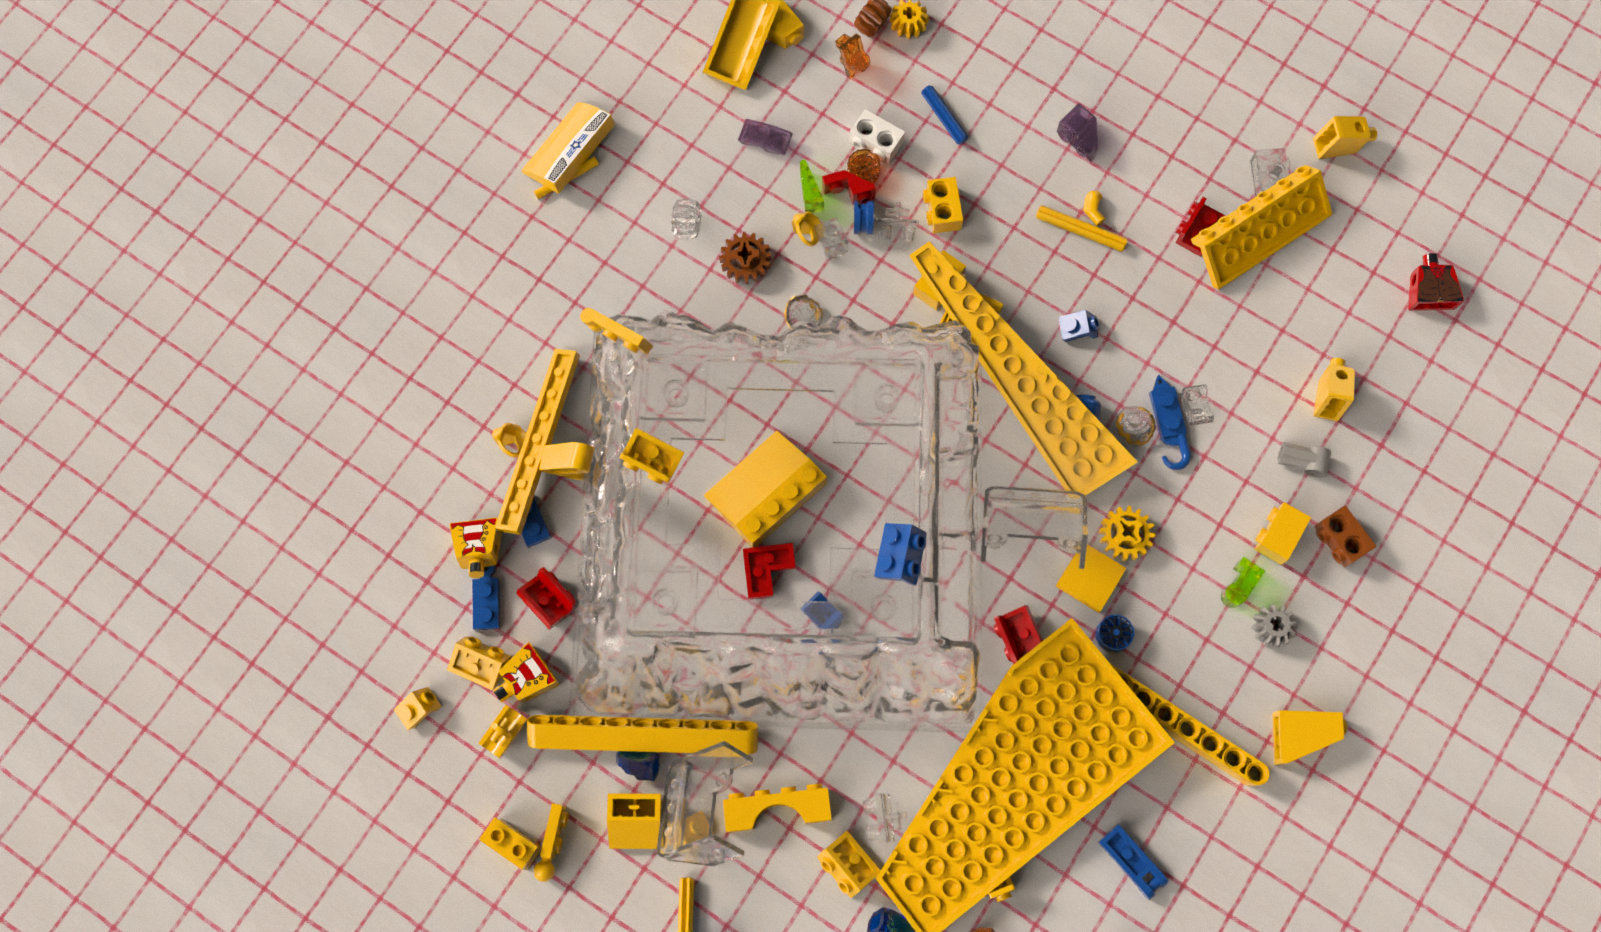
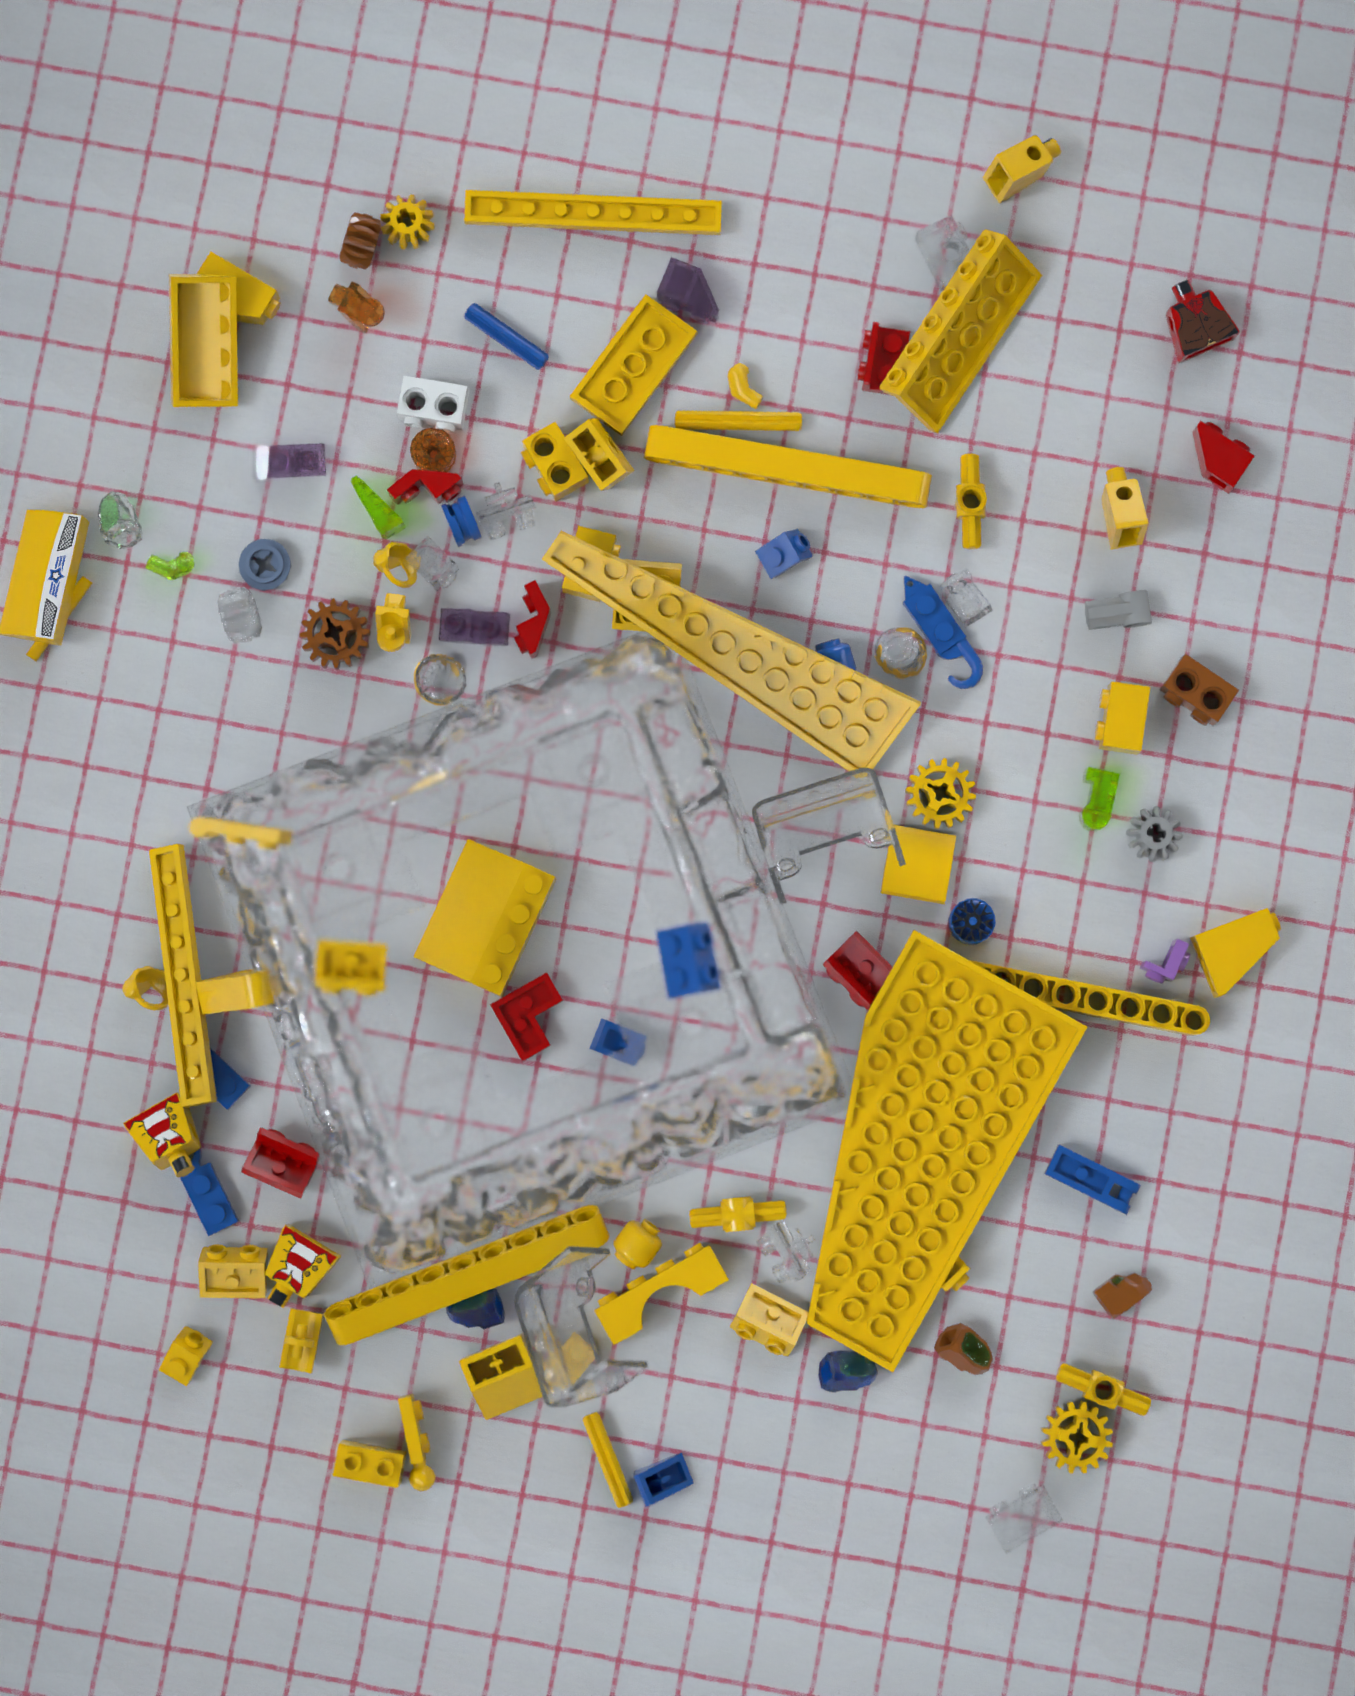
camera: 25 degrees left, 10 degrees up
(633, 131) = (118, 521): none -> clear rock
(655, 175) = (171, 569): none -> clear neon green arm
(719, 186) = (262, 550): none -> sand blue gear
(775, 765) = (637, 1244): none -> yellow head
(788, 263) = (393, 623): none -> yellow hips
(840, 291) = (474, 627): none -> clear purple slope
(857, 774) = (737, 1214): none -> yellow axle
(883, 307) = (533, 630): none -> red slope
(976, 210) = (599, 454): none -> yellow brick
(1023, 164) = (633, 365): none -> yellow plate
(1036, 59) = (592, 212): none -> yellow plate
(1105, 270) = (787, 466): none -> yellow beam
(1231, 334) = (970, 485): none -> yellow axle
(1256, 723) = (1175, 960): none -> medium lavender bracket
(1417, 381) = (1219, 457): none -> red slope

